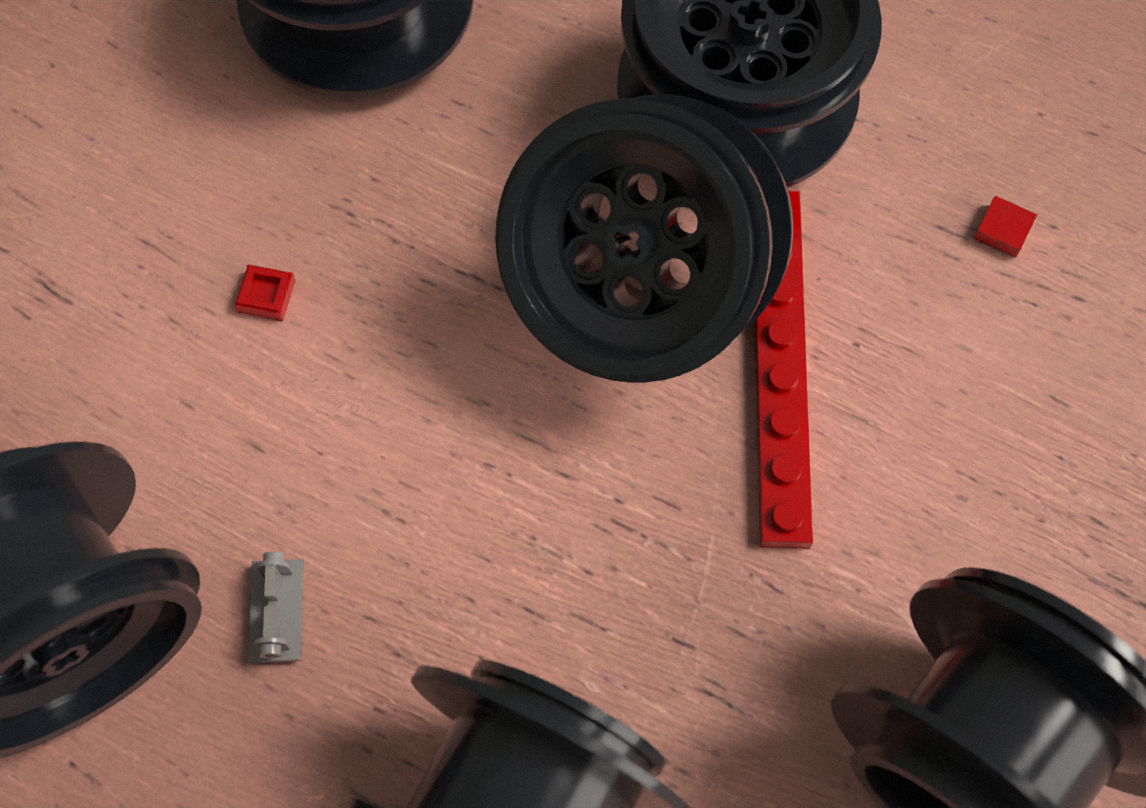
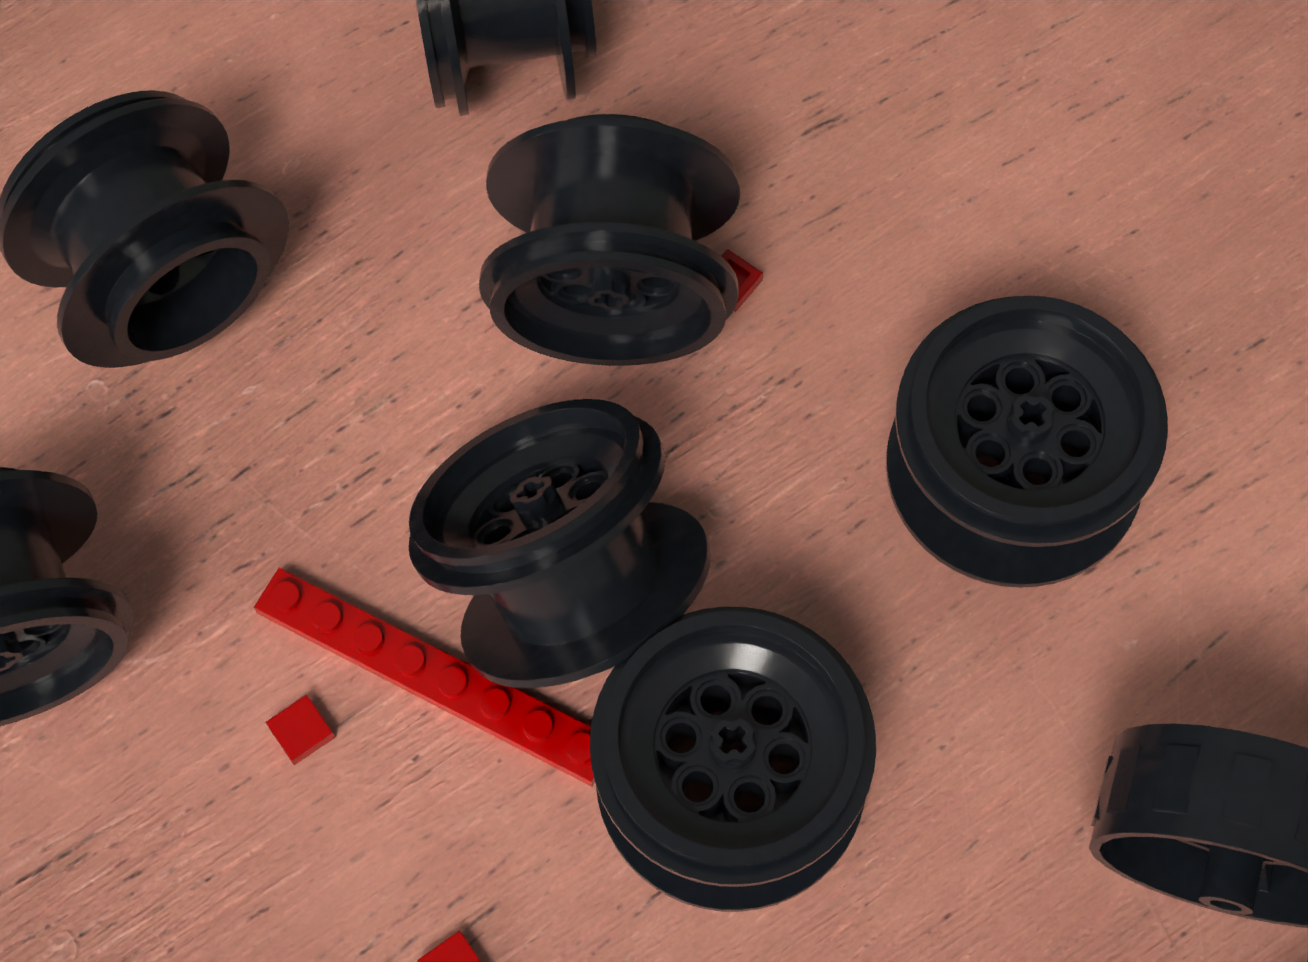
camera: 120 degrees right, 0 degrees up
(276, 609) = (437, 186): light grey hinge -> none
(305, 336) = (610, 241): none -> black wheel
(894, 445) = (300, 729): none -> red tile

